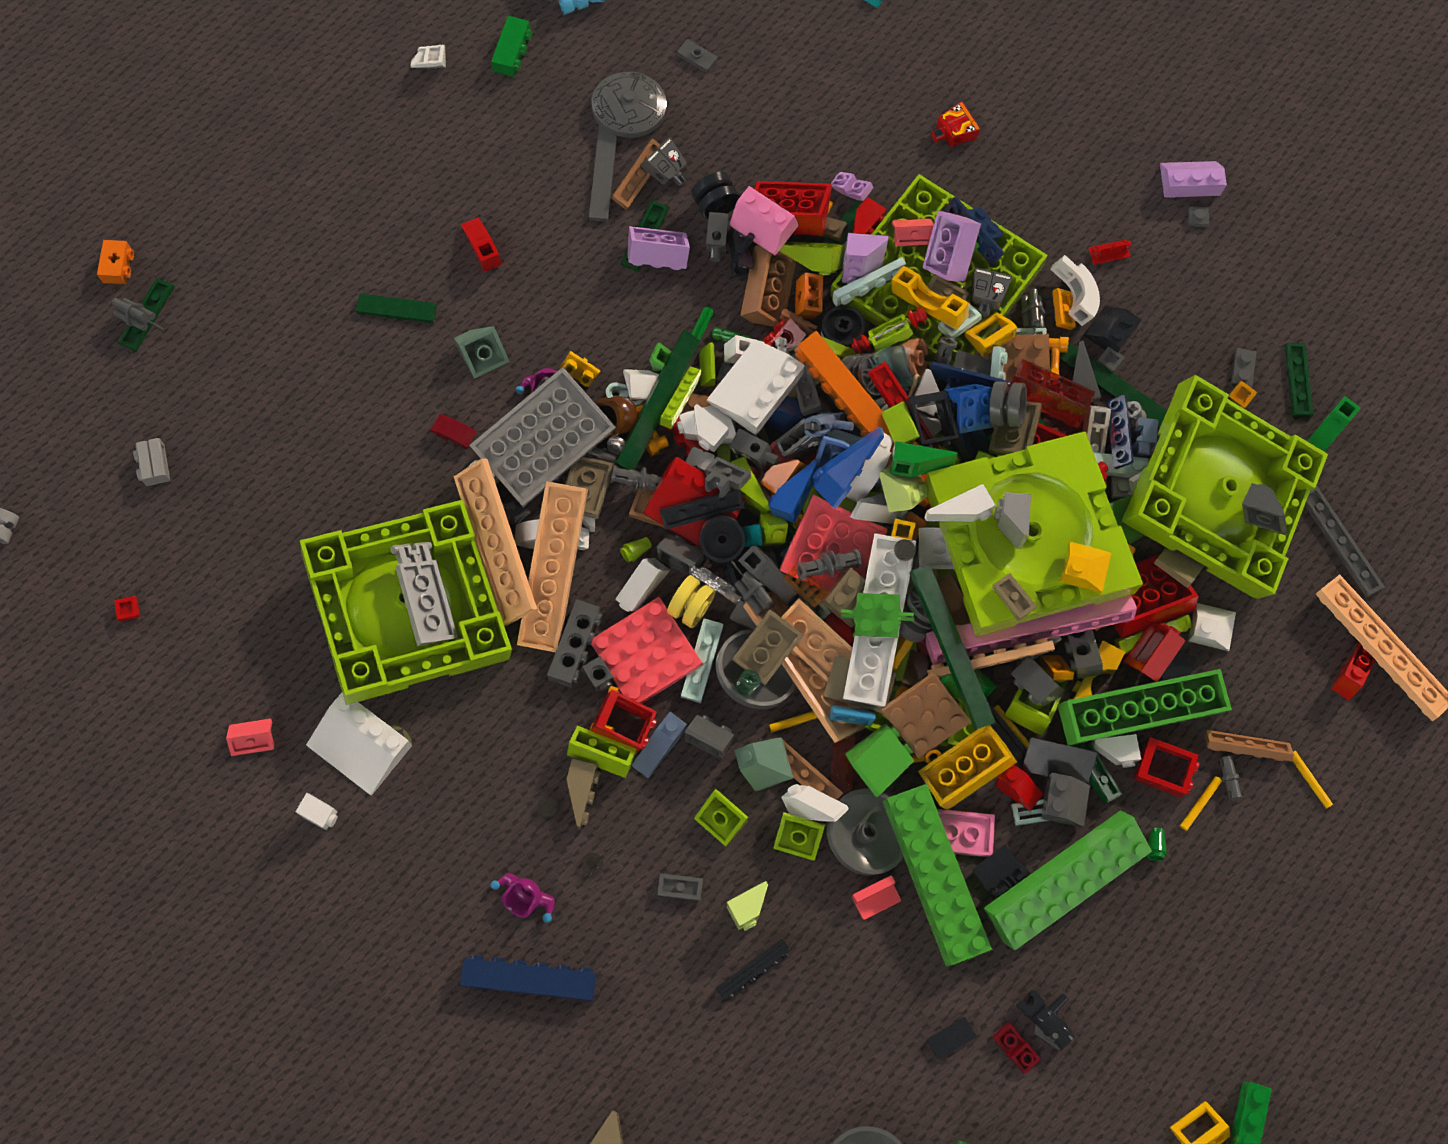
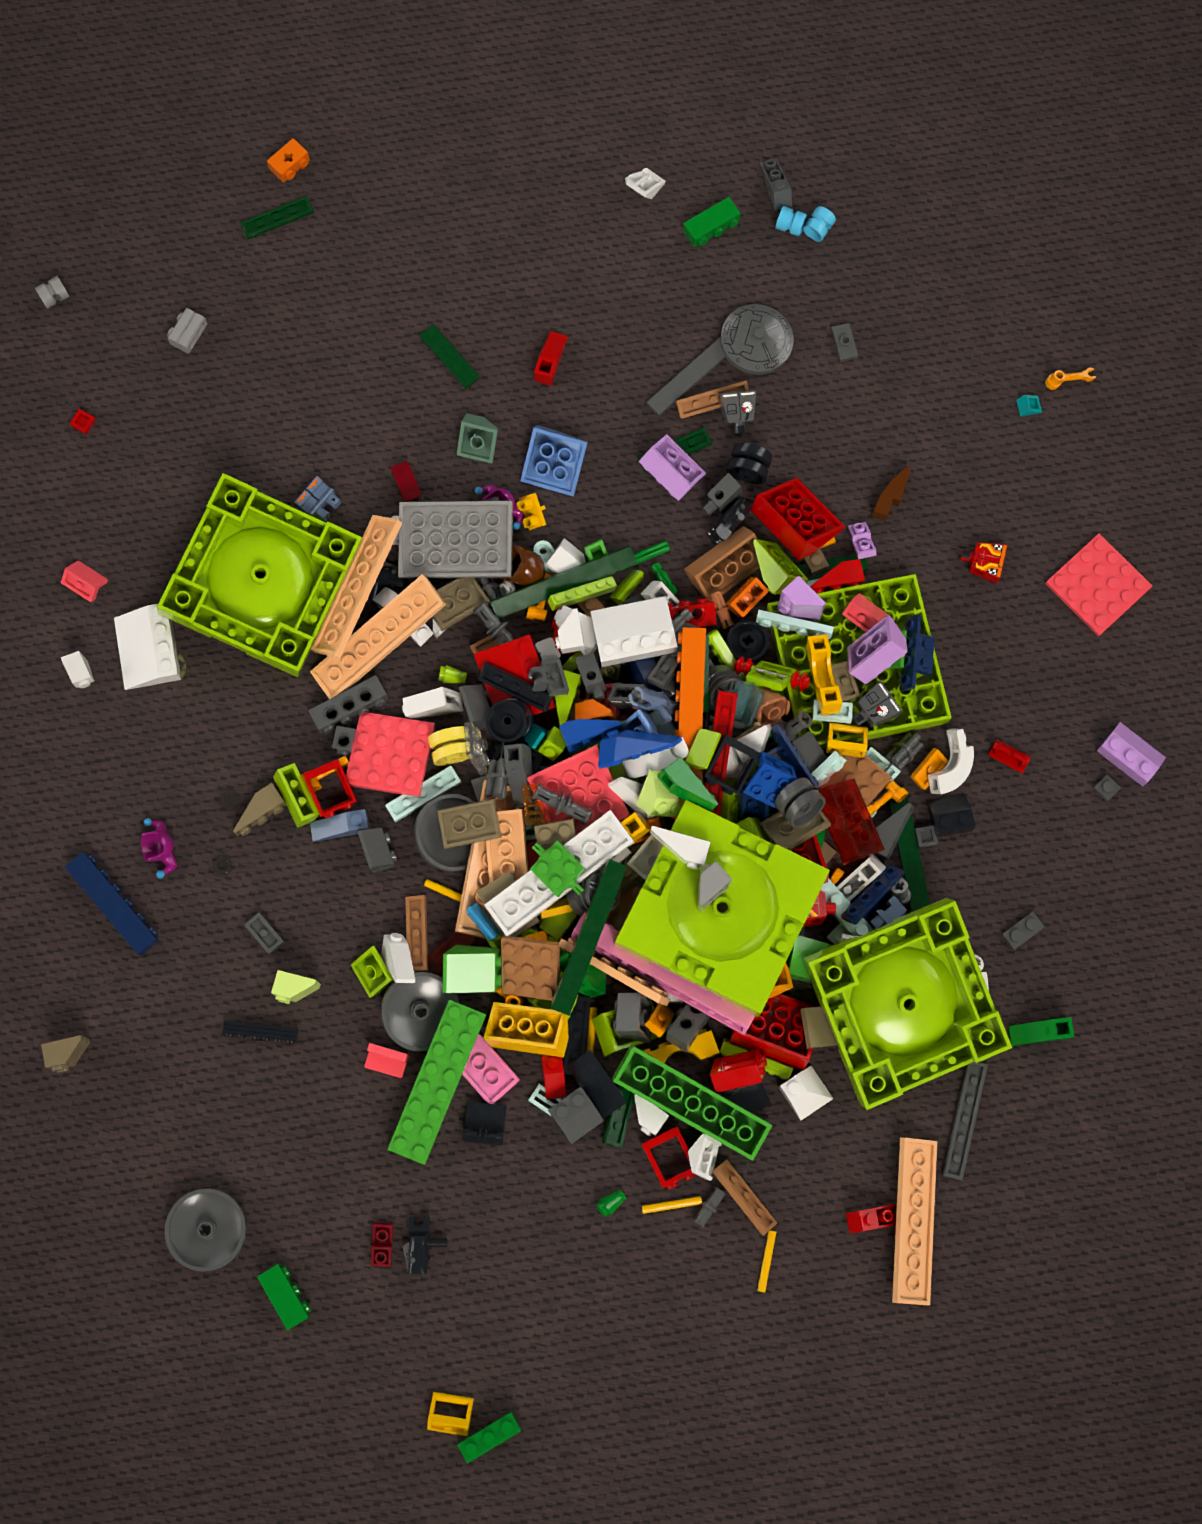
camera: 45 degrees right, 5 degrees up
(133, 314) = (266, 211): dark grey piece -> none
(391, 502) = (316, 499): none -> sand blue hips
(424, 594) = (273, 582): light grey hinge -> none
(559, 317) = (553, 460): none -> medium blue slope
(721, 818) = (334, 912): lime slope -> none
(743, 685) = (428, 837): clear green wheel -> none
(764, 219) = (760, 512): bright pink slope -> none
(764, 763) = (395, 901): sand green slope -> none
(842, 136) = (891, 495): none -> reddish brown slope
(904, 550) = (618, 840): clear smoke tile -> none
(915, 668) = (556, 930): dark brown tile -> none
(951, 1038) = (346, 1197): black tile -> none
(1014, 597) = (656, 940): dark tan plate -> none
(1050, 80) = (1098, 584): none -> coral plate
(1067, 880) = (522, 1168): bright green brick -> none
(1085, 567) = (730, 965): yellow slope -> none
(1190, 741) = (703, 1156): none -> white slope
(1242, 394) = (1000, 948): light orange plate -> none
(1263, 509) = (915, 1041): dark grey slope -> none
(1299, 380) = (1056, 976): dark green tile -> none

